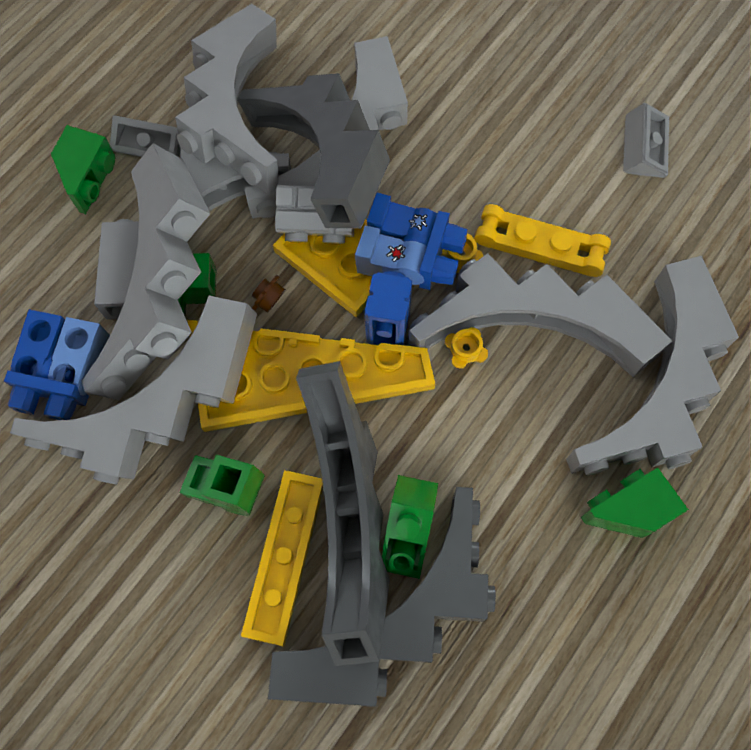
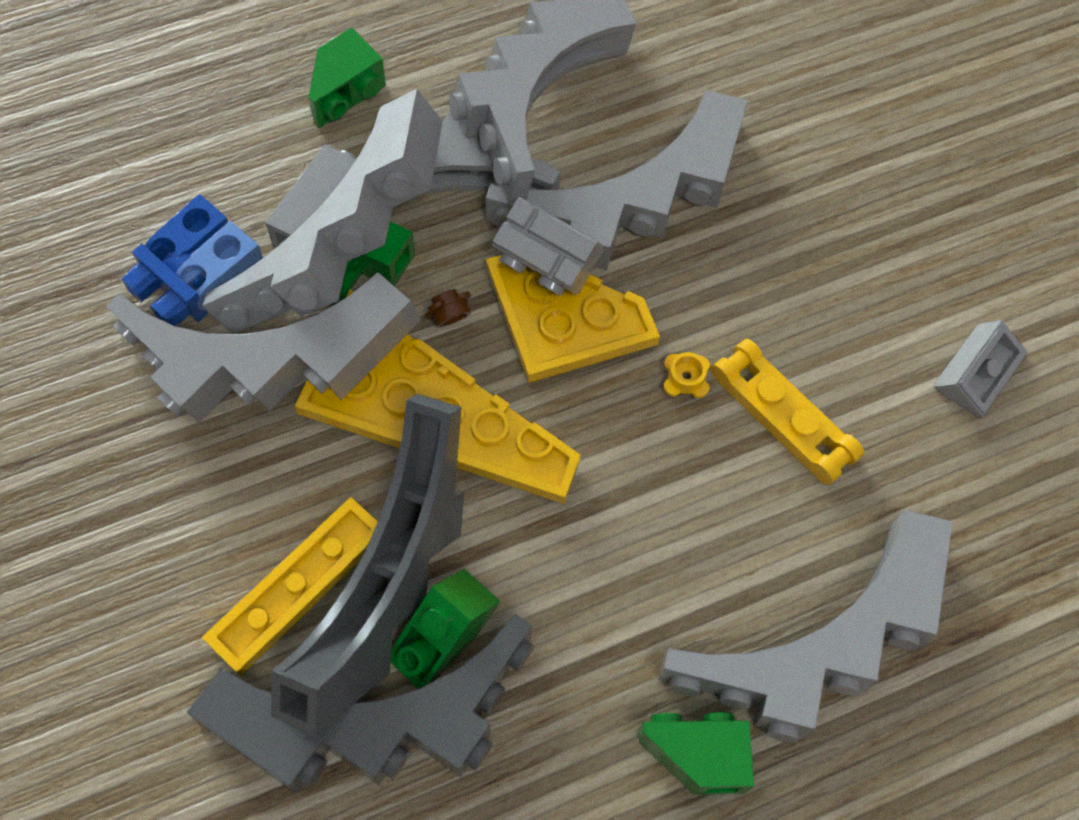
camera: 25 degrees right, 5 degrees down
(136, 136) = (416, 70): light grey slope -> none
(223, 483) = (281, 475): green brick -> none
(350, 152) = (615, 195): dark grey arch -> none
(388, 308) = (560, 389): blue brick -> none
(409, 243) = (626, 333): hips -> none
(469, 337) = (630, 466): yellow plate -> none
(594, 314) = (791, 522): light grey arch -> none

